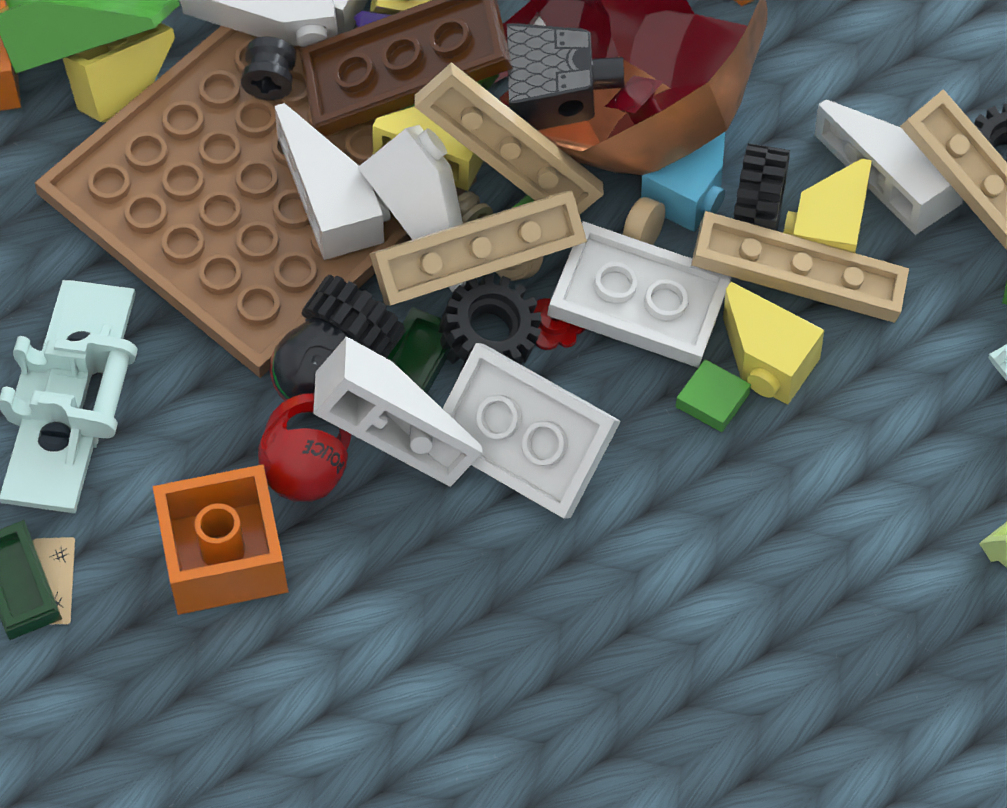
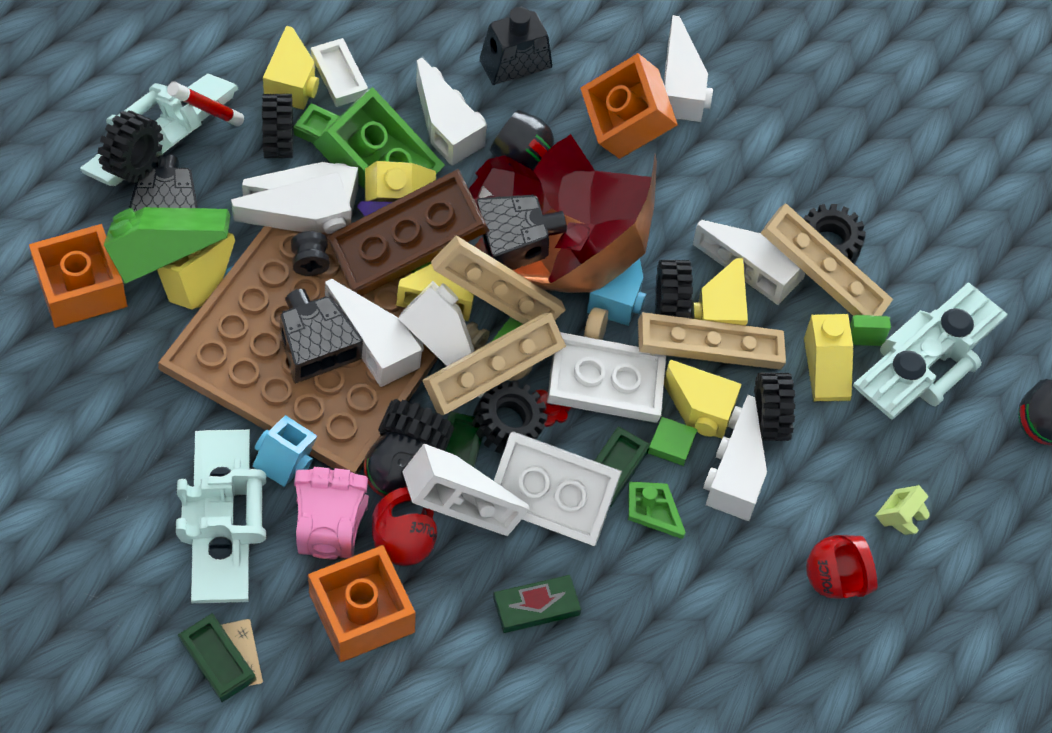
camera: 20 degrees left, 0 degrees up
(171, 323) = (284, 450): none -> medium azure brick
(207, 411) = (329, 511): none -> bright pink piece
(249, 178) = (317, 336): none -> torso
(465, 582) = (536, 603): none -> dark green tile
(639, 404) = (625, 454): none -> dark green tile
(663, 481) = (654, 507): none -> bright green piece
(793, 454) = (742, 467): none -> white slope
(863, 368) = (775, 405): none -> black tyre
(902, 604) = (842, 567): none -> red helmet
(967, 315) = (829, 357): none -> light yellow slope

